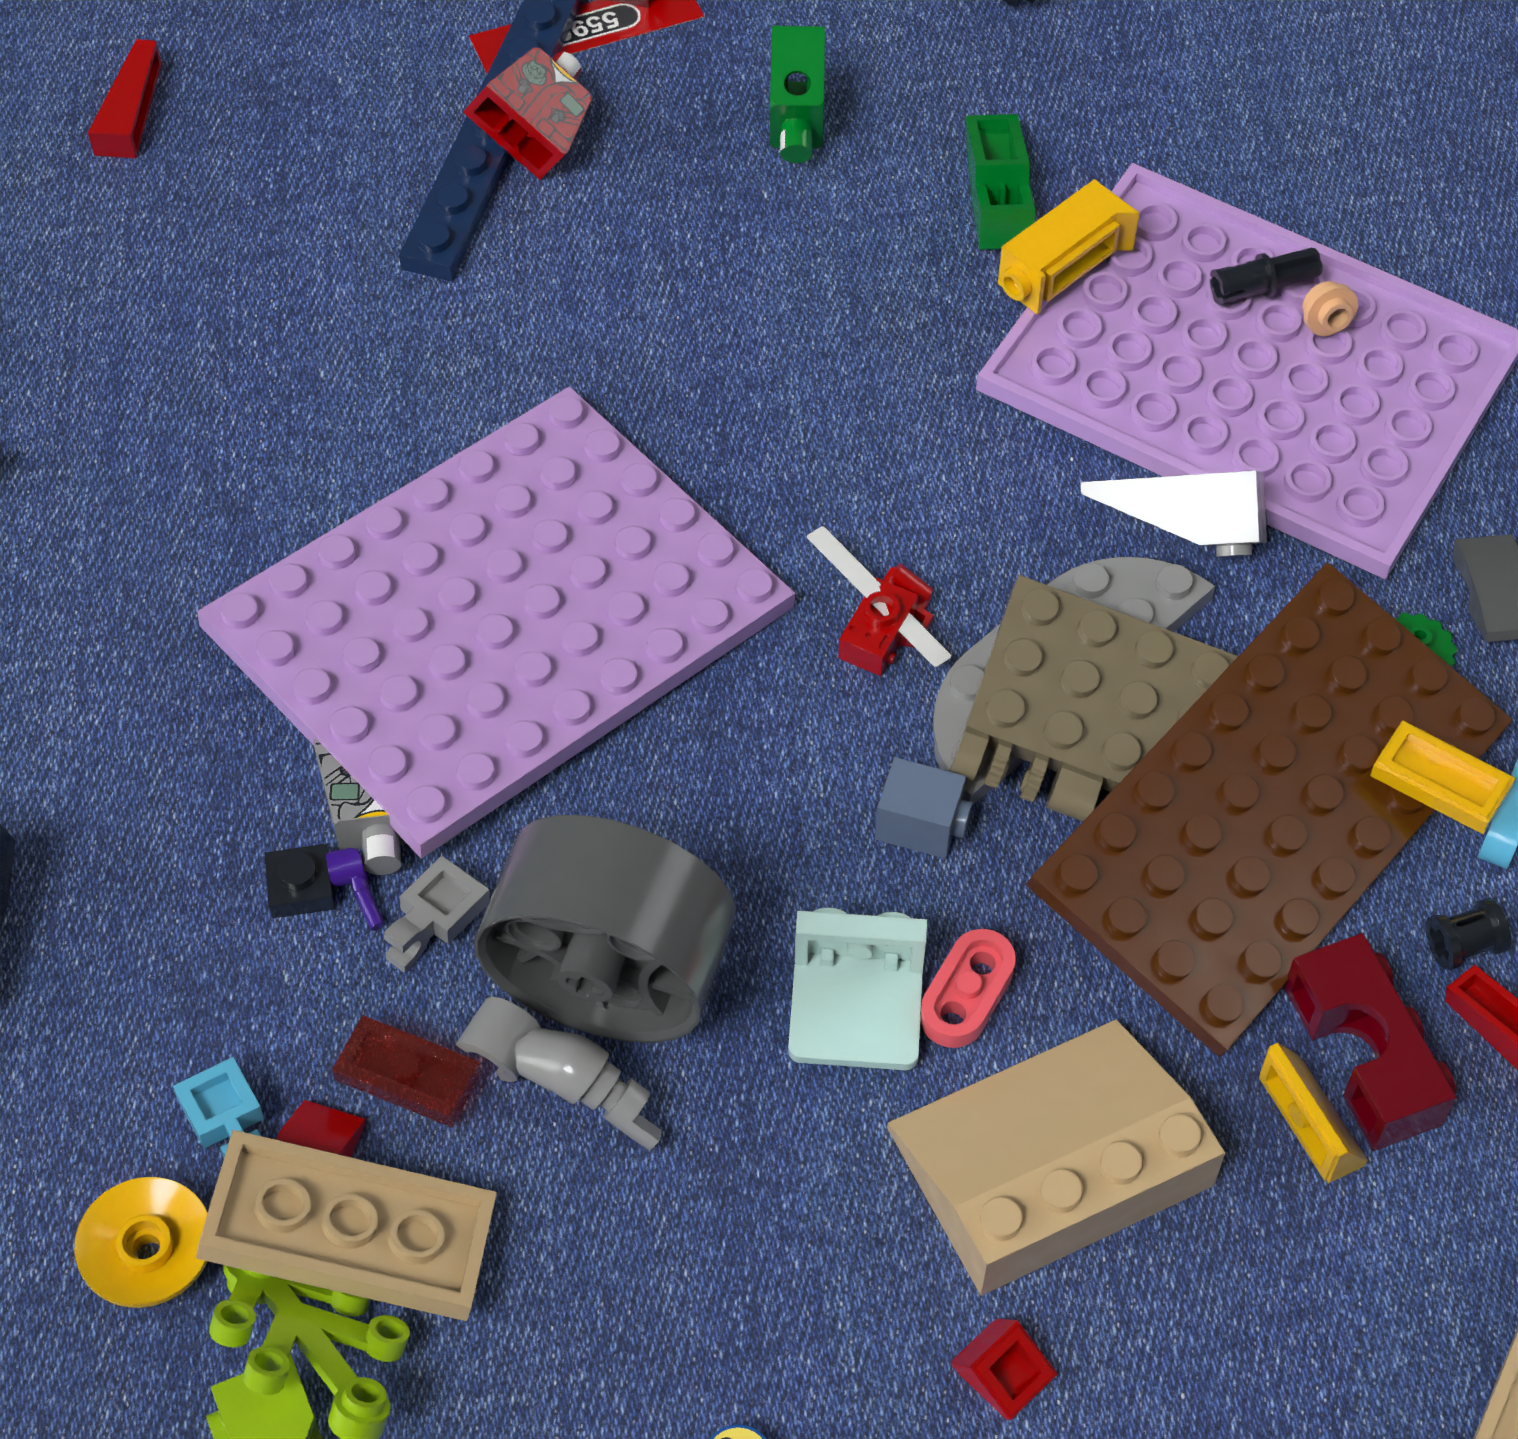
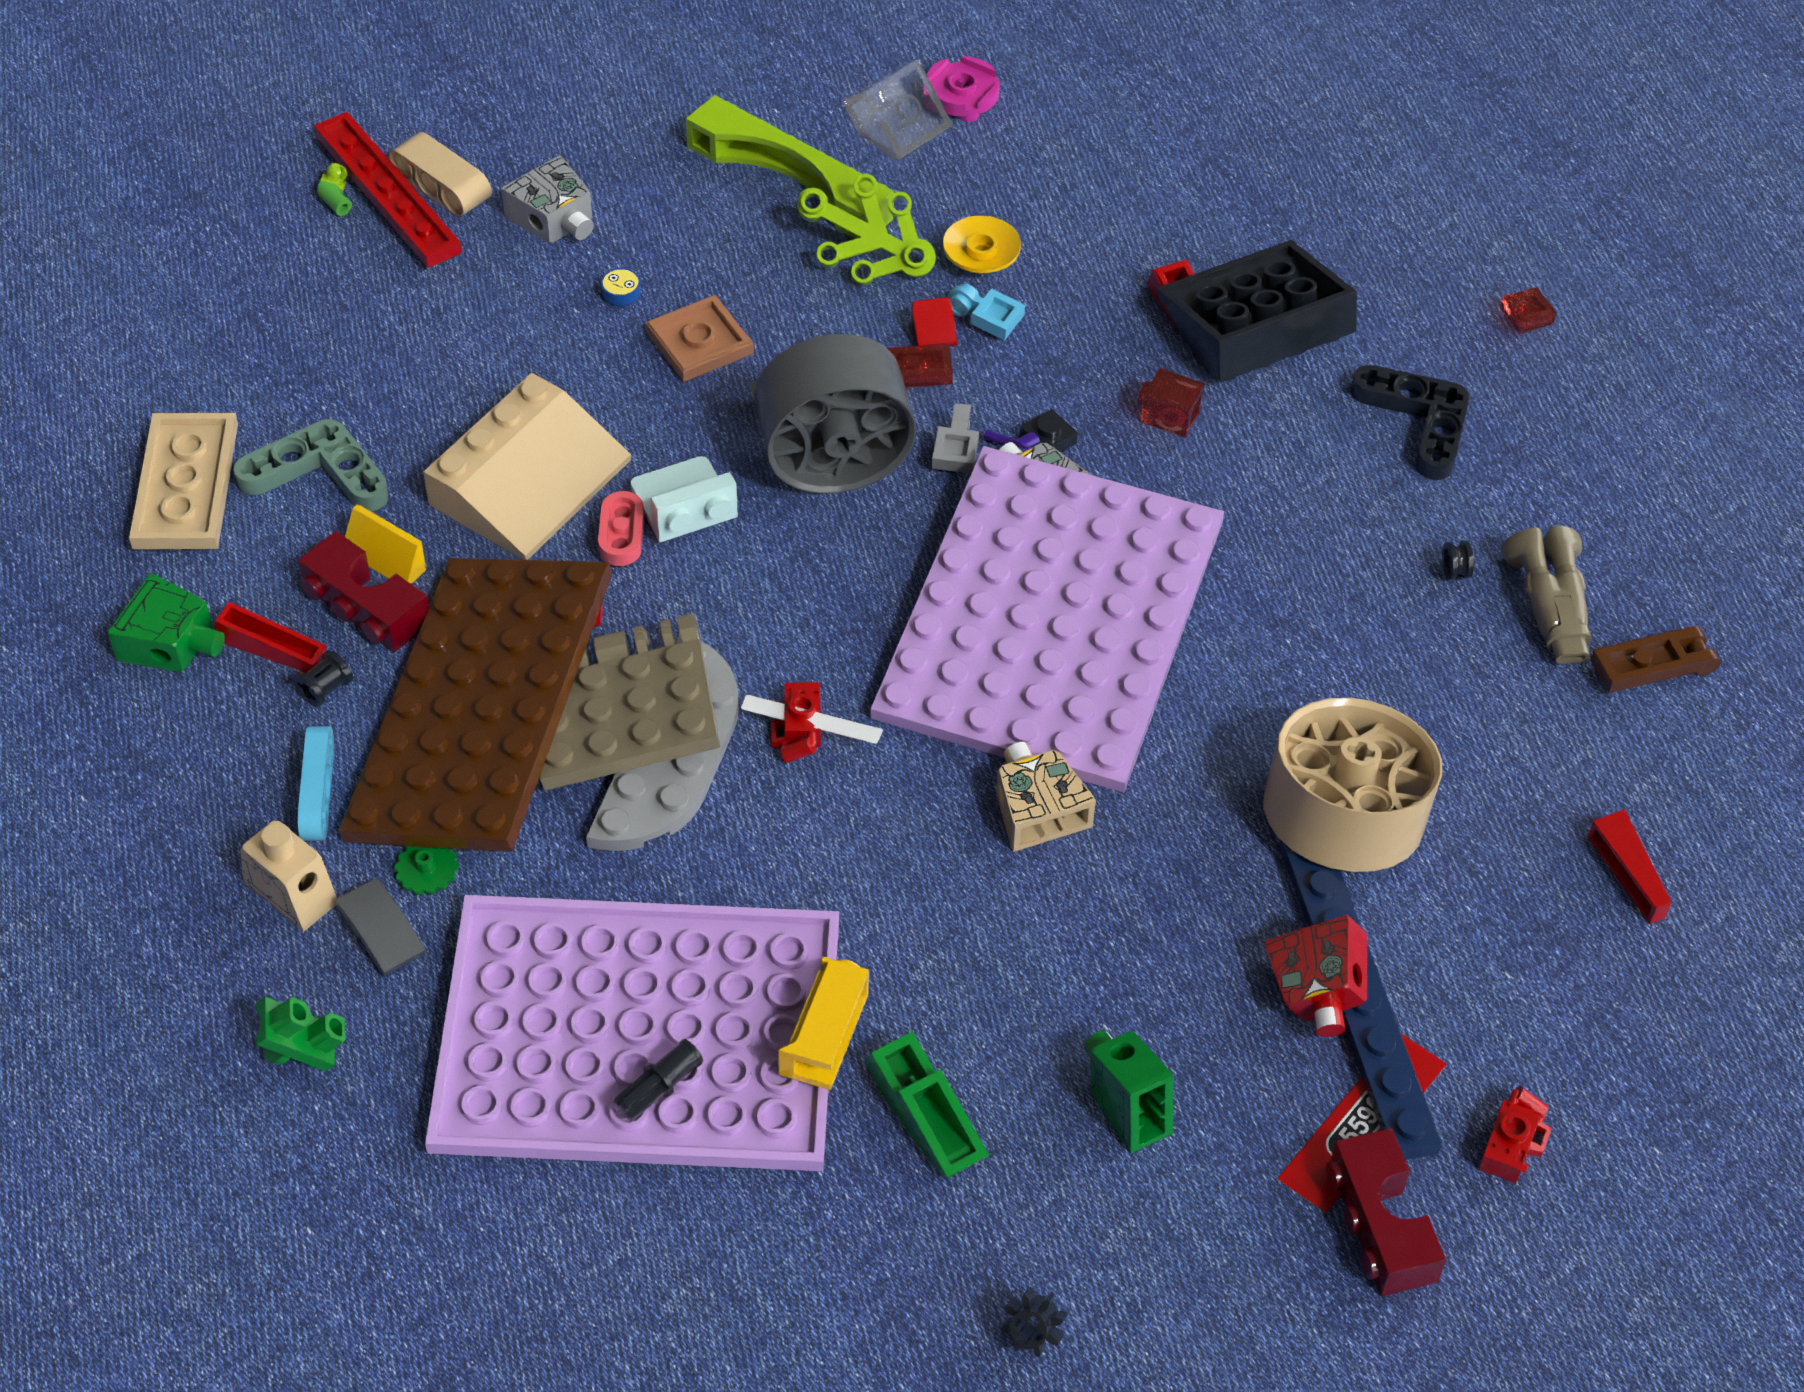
camera: 150 degrees right, 5 degrees down
(108, 831) = (1171, 402): none -> clear red brick
(333, 239) = (1352, 784): none -> tan wheel
(347, 1225) = (881, 276): tan plate -> none
(671, 1297) = (699, 338): none -> nougat tile
(678, 404) = (1041, 797): none -> tan torso
(922, 808) = (710, 601): sand blue brick -> none
(1004, 1367) = (504, 373): red slope -> none
(1202, 508) = (636, 870): slope -> none
(1329, 308) = (592, 1064): light nougat plate -> none
(1339, 1335) = (324, 453): none -> sand green beam
(1442, 777) = (370, 737): yellow tile -> none

